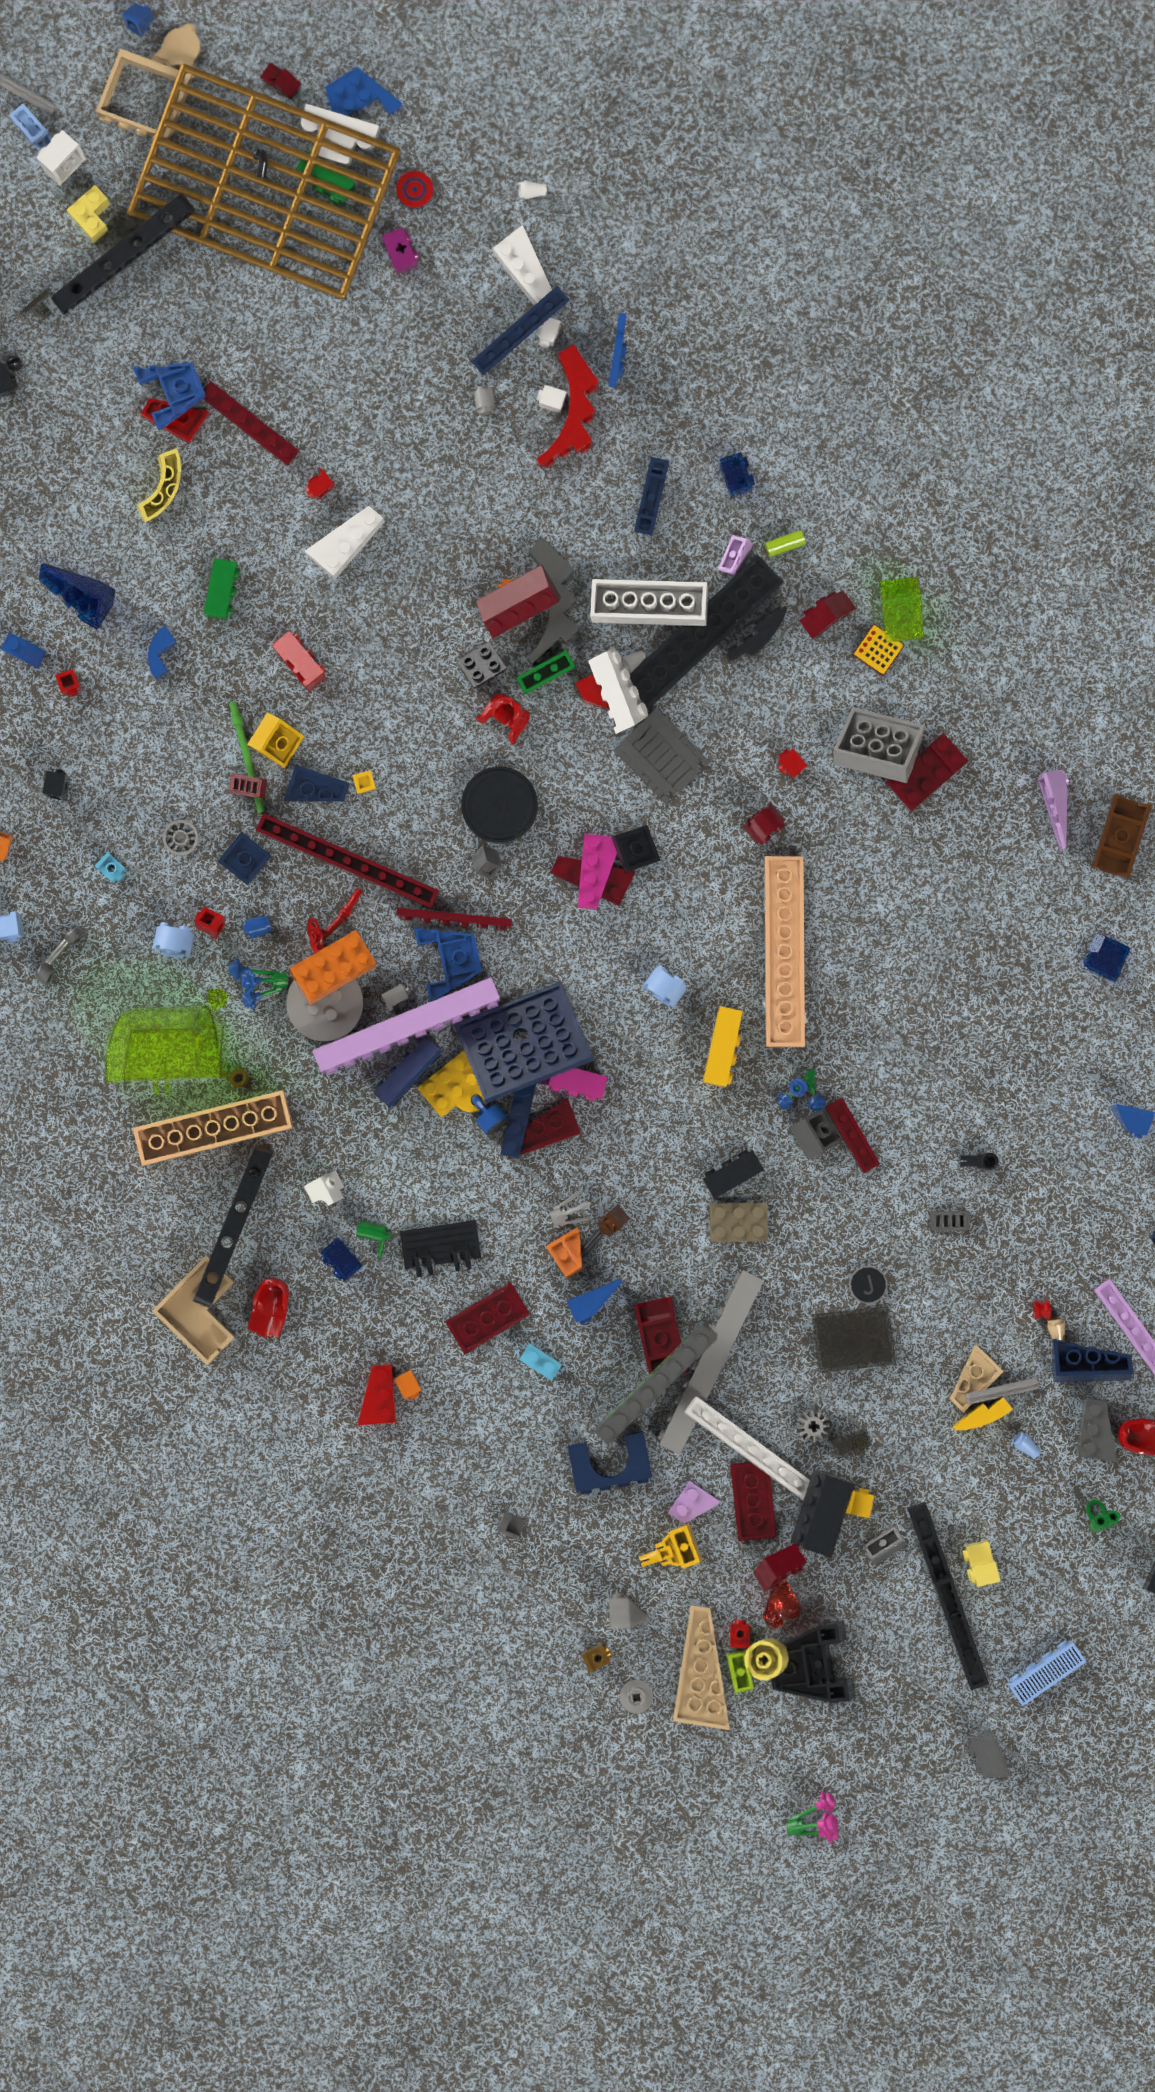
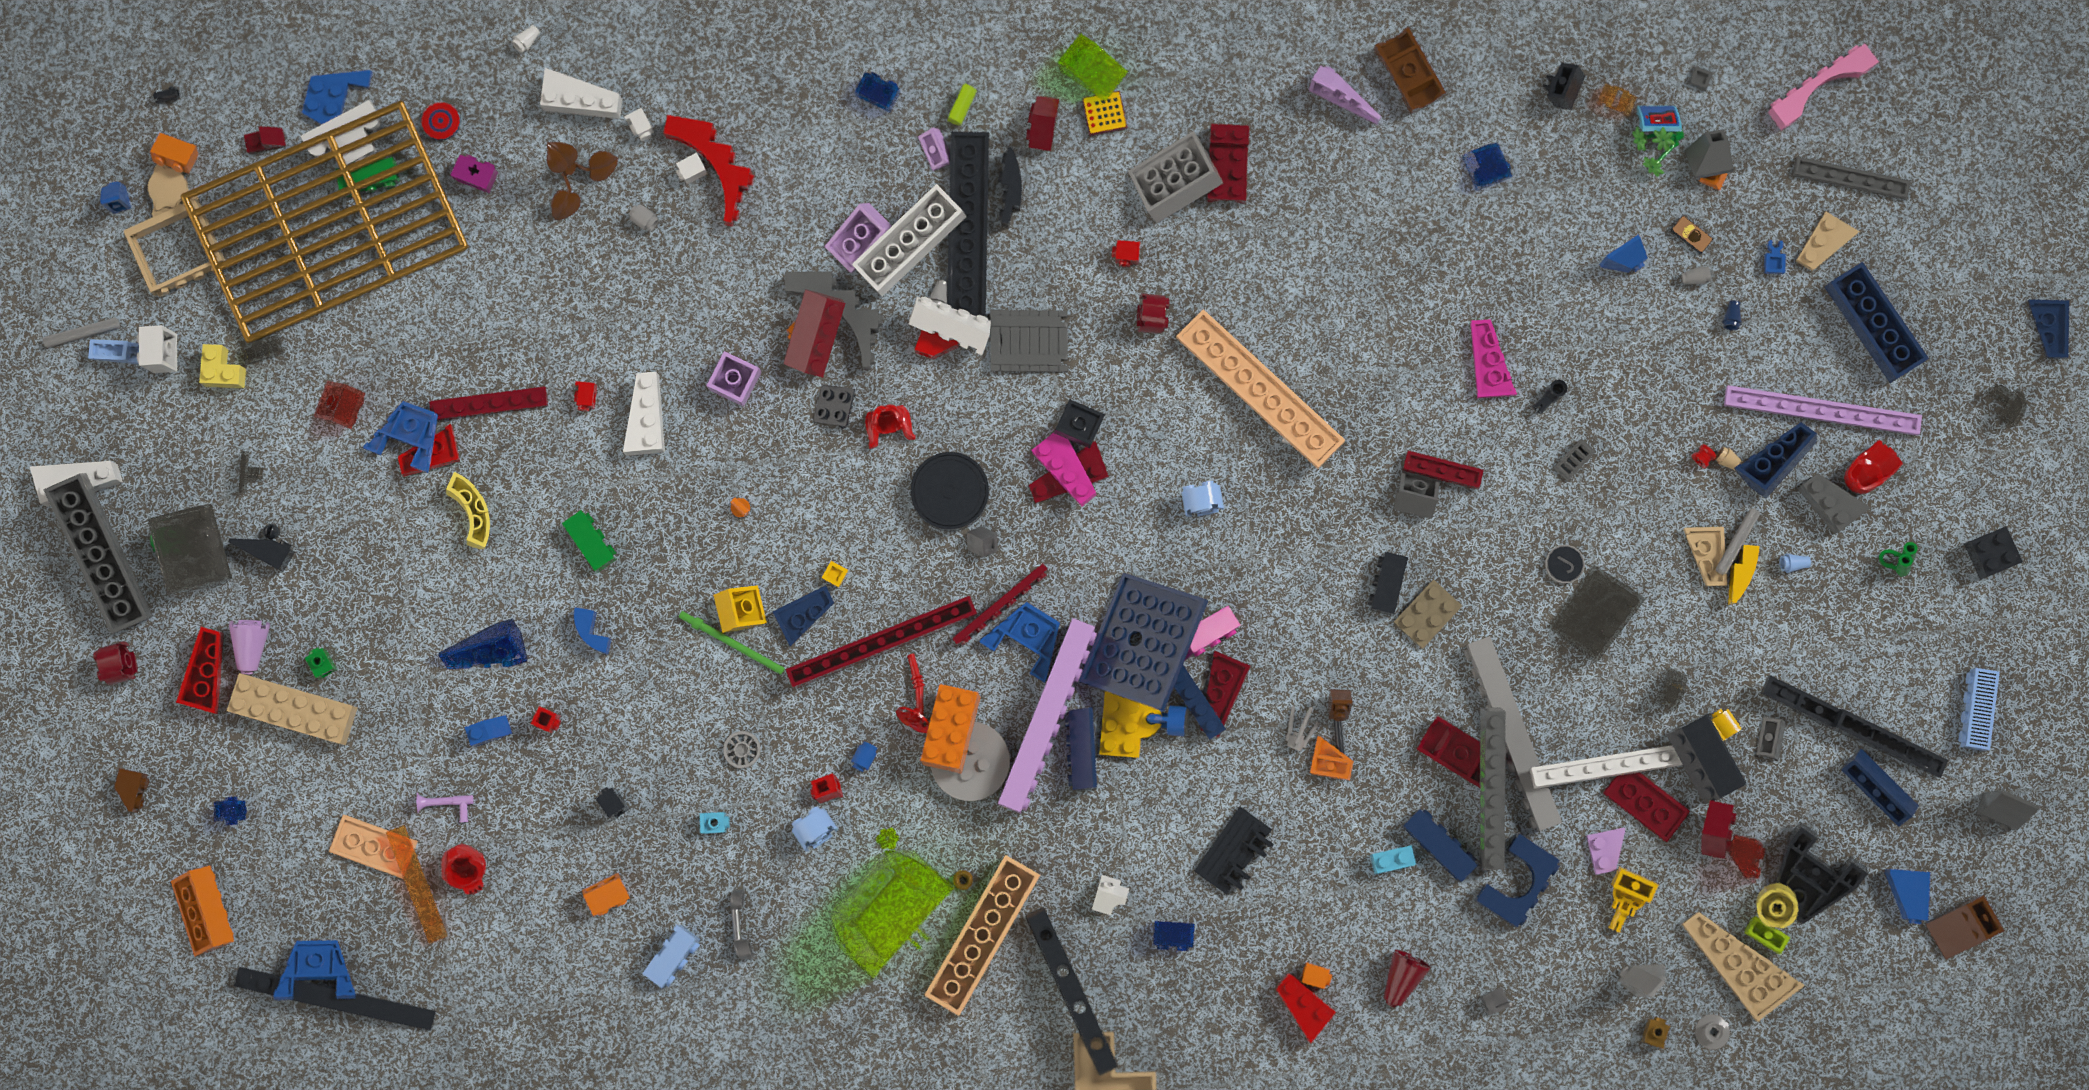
camera: 40 degrees left, 5 degrees down
(123, 254) = (273, 373): black beam -> none
(146, 321) = (339, 404): none -> clear red slope
(208, 27) = (174, 153): none -> orange brick
(244, 858) = (804, 717): dark blue plate -> none
(248, 981) = (900, 798): blue plant -> none
(260, 790) = (764, 652): dark red slope -> none
(263, 163) = (311, 207): black arm -> none
(269, 1308) = (1158, 1024): red hair -> none
(299, 660) = (699, 534): wedge -> none
(346, 670) = (740, 507): none -> orange plate
(374, 1232) = (1177, 890): green piece -> none
(396, 997) = (1017, 704): light grey brick -> none
(431, 577) = (734, 378): none -> lavender brick
(466, 1446) = (1403, 977): none -> dark red cone
(467, 305) = (562, 158): none -> reddish brown plant
(487, 1318) = (1321, 868): dark red tile -> none
(520, 330) = (619, 142): dark blue plate -> none
(545, 672) = (885, 364): green brick -> none
(582, 1385) = (1440, 845): none -> dark blue brick
(590, 1302) = (1384, 779): blue slope -> none
(619, 352) = (705, 87): blue wing -> none
(619, 562) = (857, 235): none -> lavender slope
(651, 496) = (832, 166): dark blue slope -> none
(722, 1047) = (1288, 500): yellow brick -> none
(742, 1642) = (1739, 917): red brick -> none
(798, 1088) = (1373, 472): blue plant -> none
(807, 1421) = (1640, 703): light grey gear -> none
(828, 1823) = (1948, 984): plant -> none
(867, 1744) = (1911, 893): none -> blue slope
(879, 1803) = (1964, 926): none -> reddish brown slope
(921, 1654) = (1880, 787): none -> dark blue brick
(957, 1101) = (1489, 363): none -> dark pink wing
(982, 1567) = (1857, 681): light yellow brick -> none

